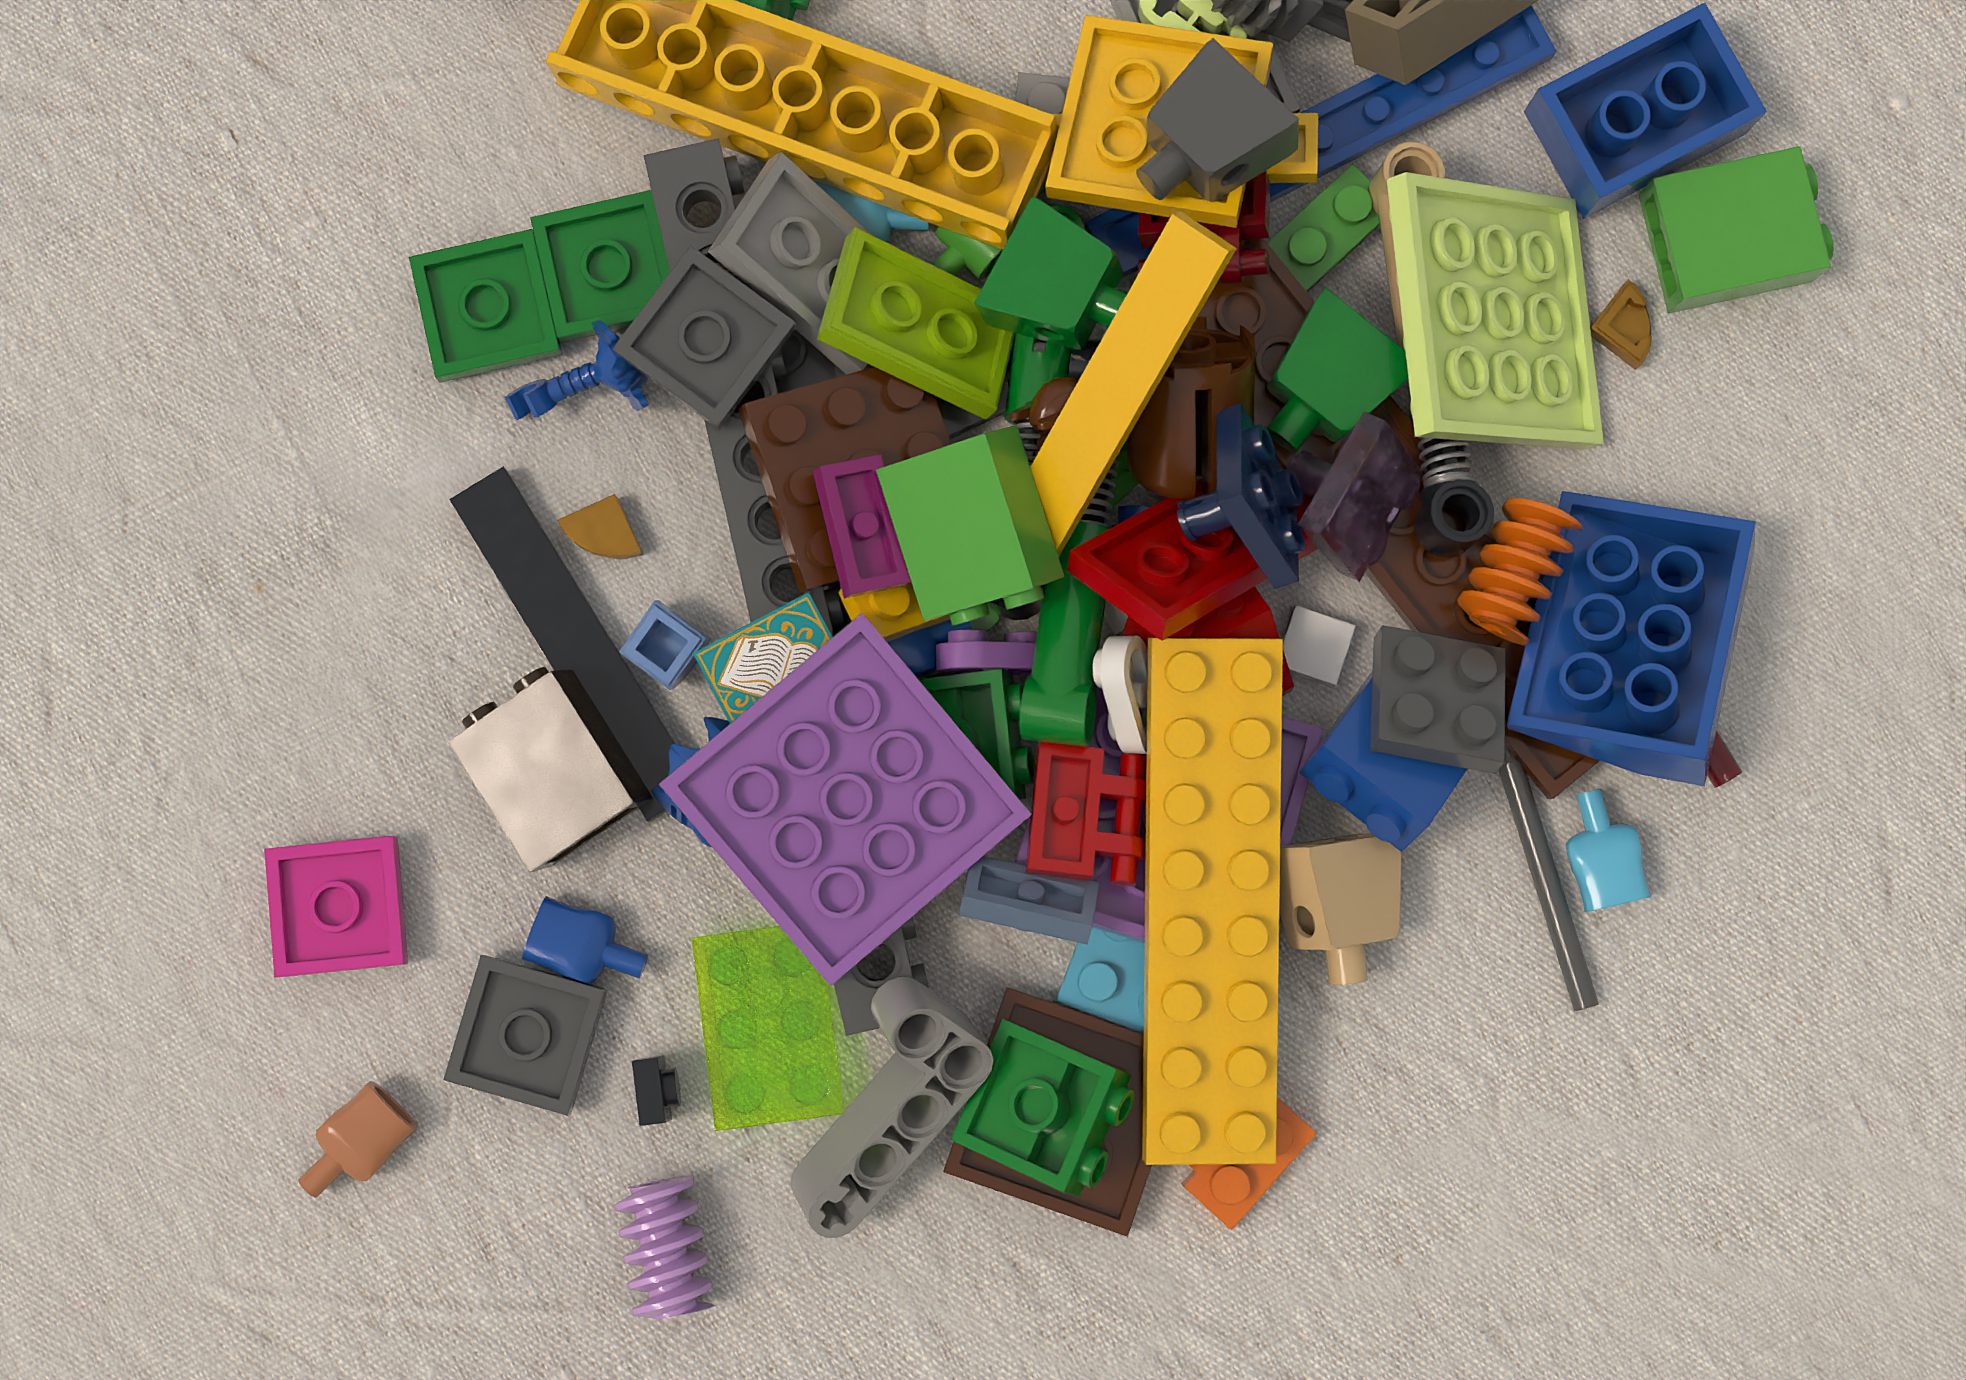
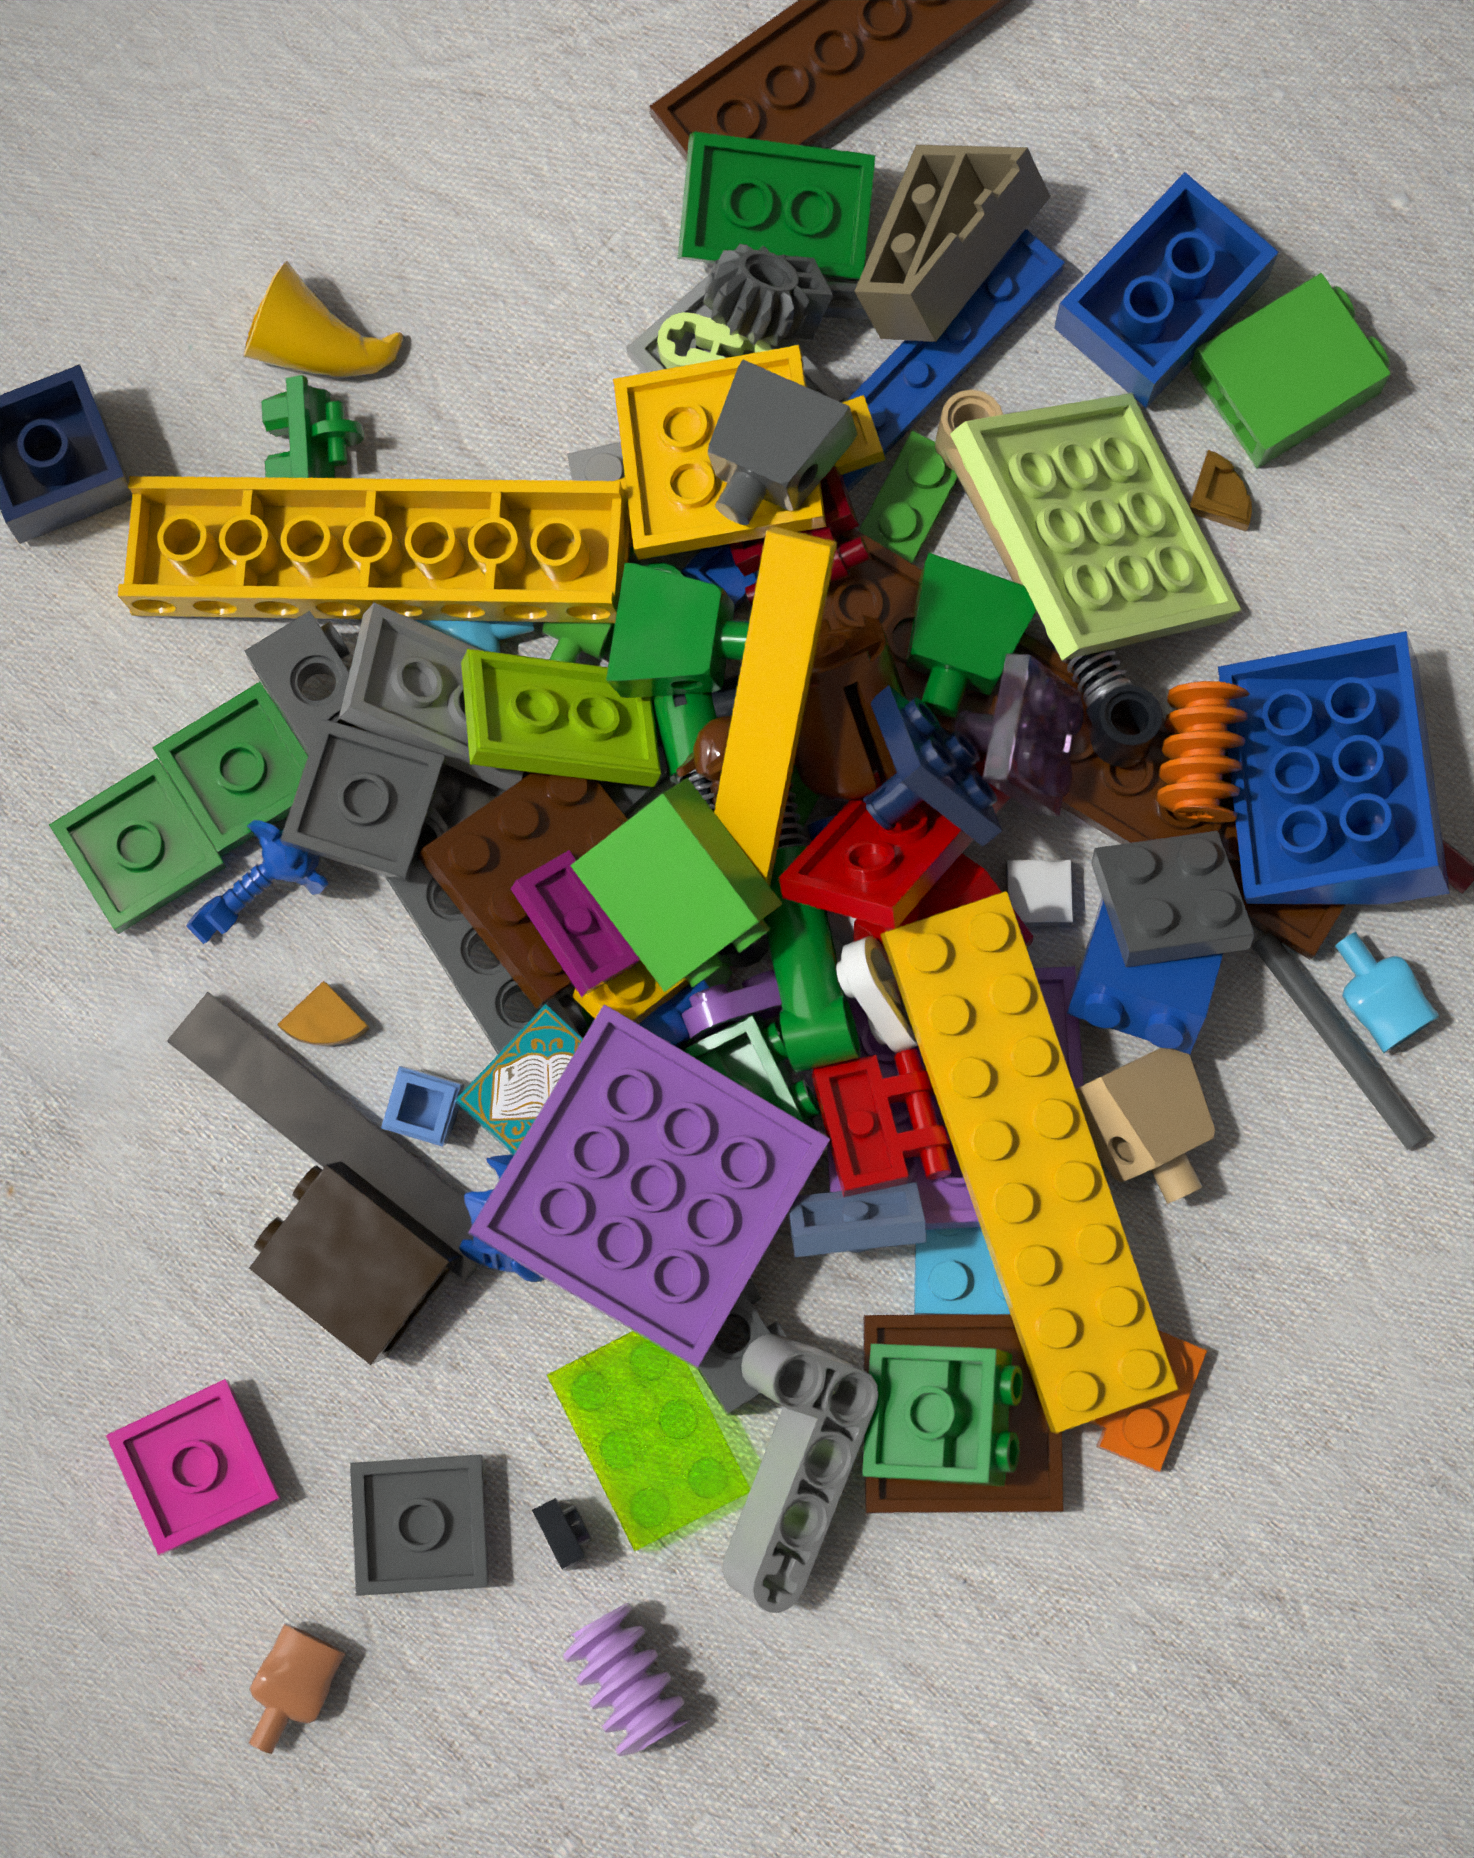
camera: 15 degrees left, 5 degrees down
(578, 943) = (440, 1419): blue piece -> none

